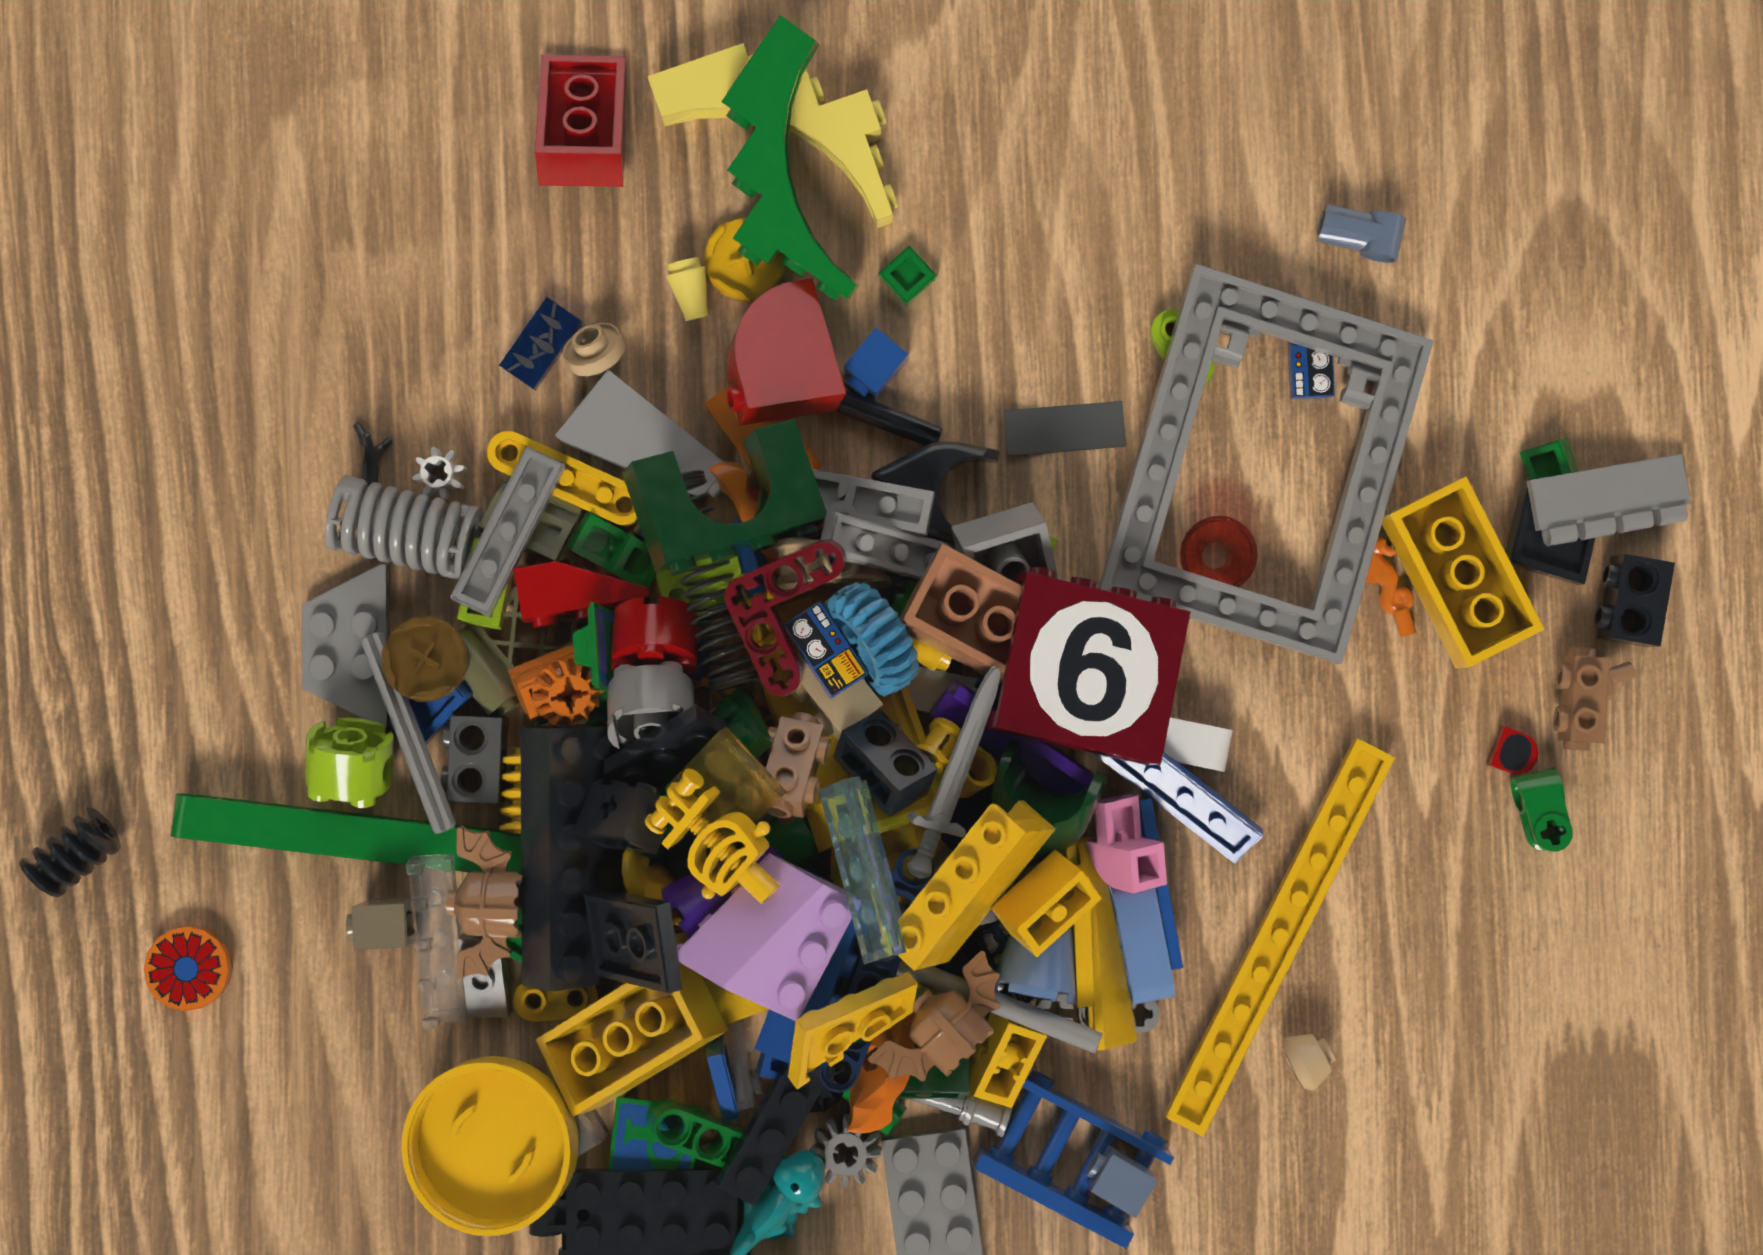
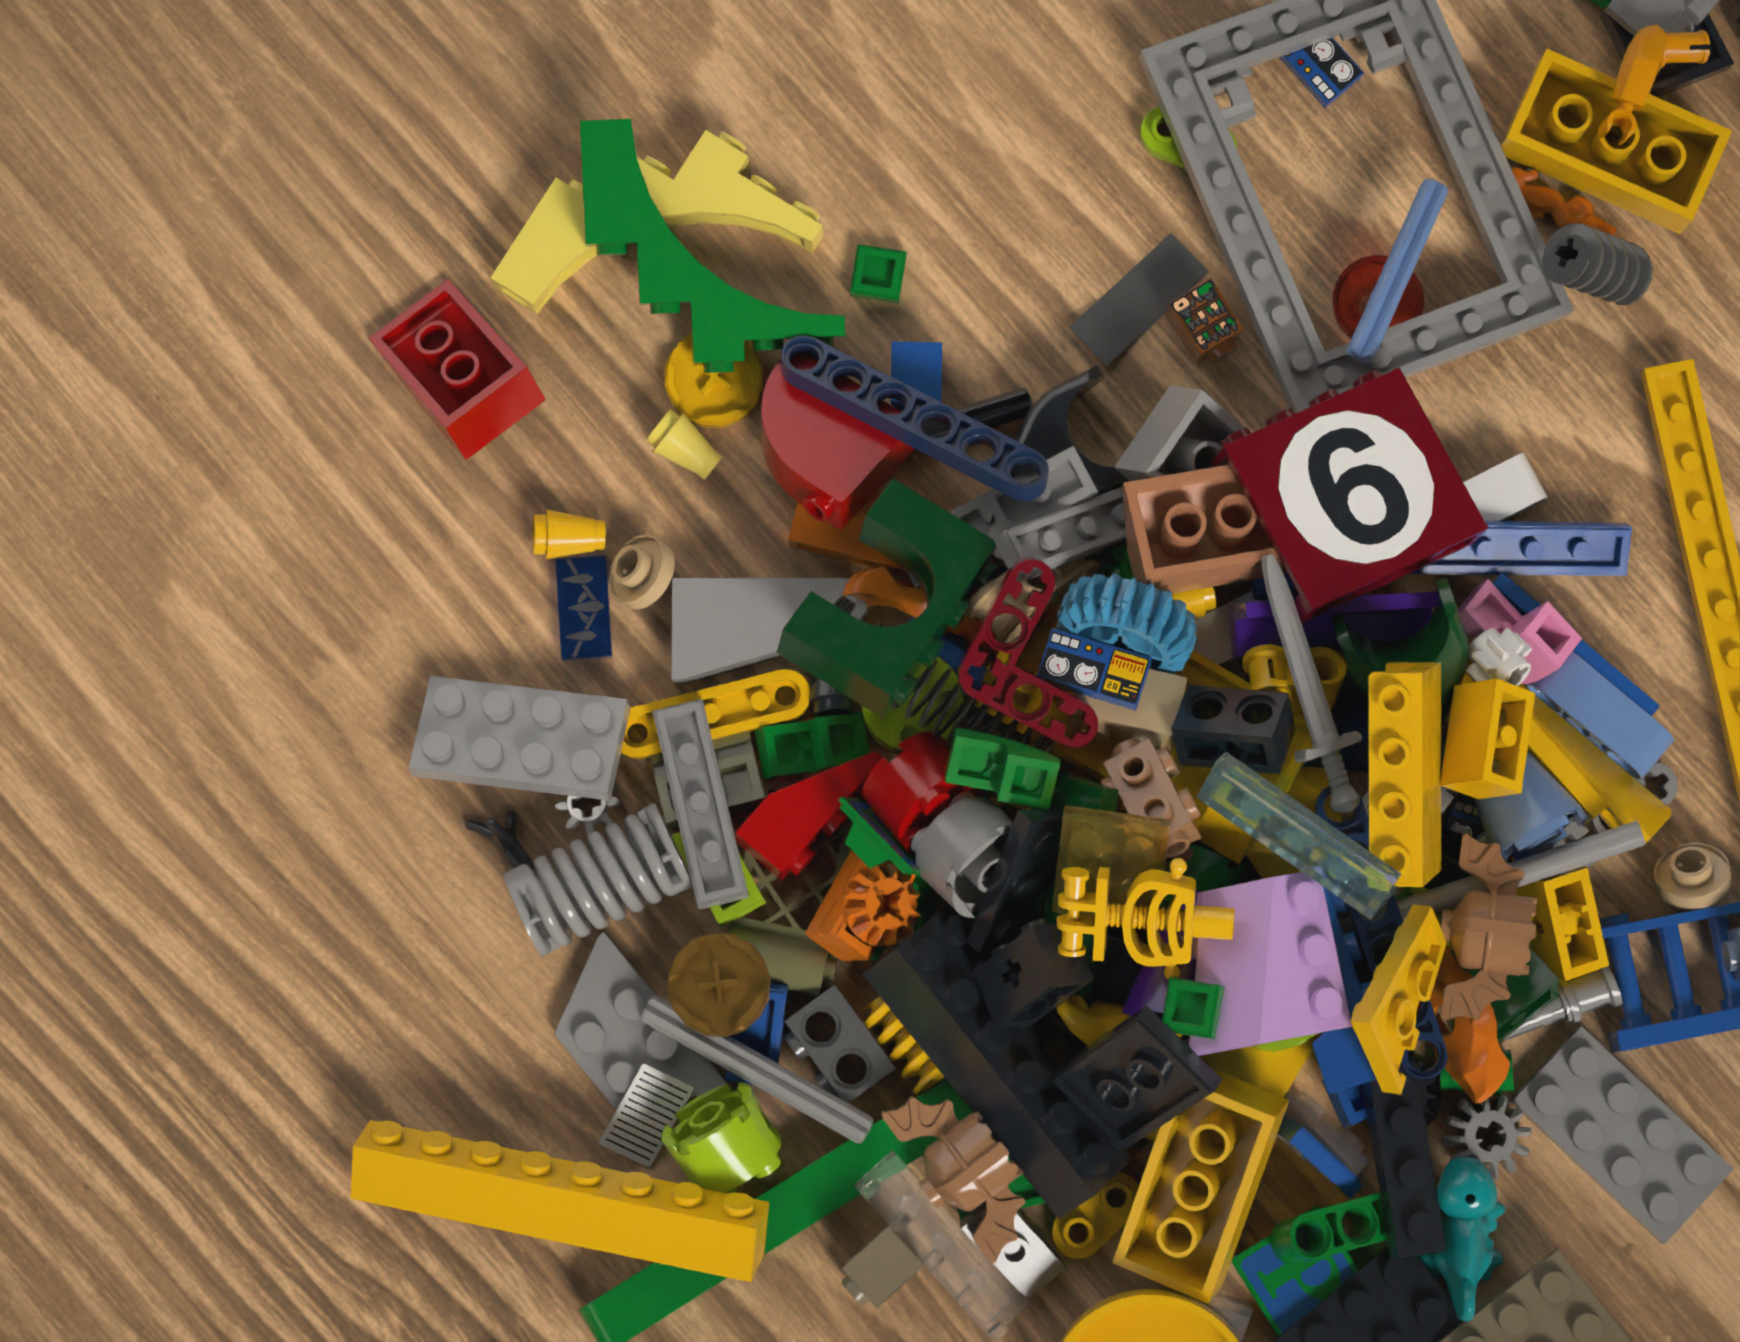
camera: 40 degrees left, 5 degrees down
(212, 716) = (559, 1200): none -> yellow brick
(318, 702) = (644, 1113): none -> white sticker
(428, 395) = (520, 738): none -> light grey plate
(566, 286) = (566, 534): none -> yellow cone
(700, 927) = (1192, 1007): none -> green tile
(715, 672) = (1002, 765): none -> green slope
(838, 390) = (918, 411): none -> dark blue beam
(1093, 478) = (1205, 323): none -> brick
(1098, 856) = (1499, 657): none -> white gear
(1115, 1092) = (1692, 876): none -> tan plate
(1245, 545) = (1397, 271): none -> medium blue axle
(1382, 645) = (1597, 264): none -> dark grey piece
(1517, 538) = (1641, 63): none -> light orange arm

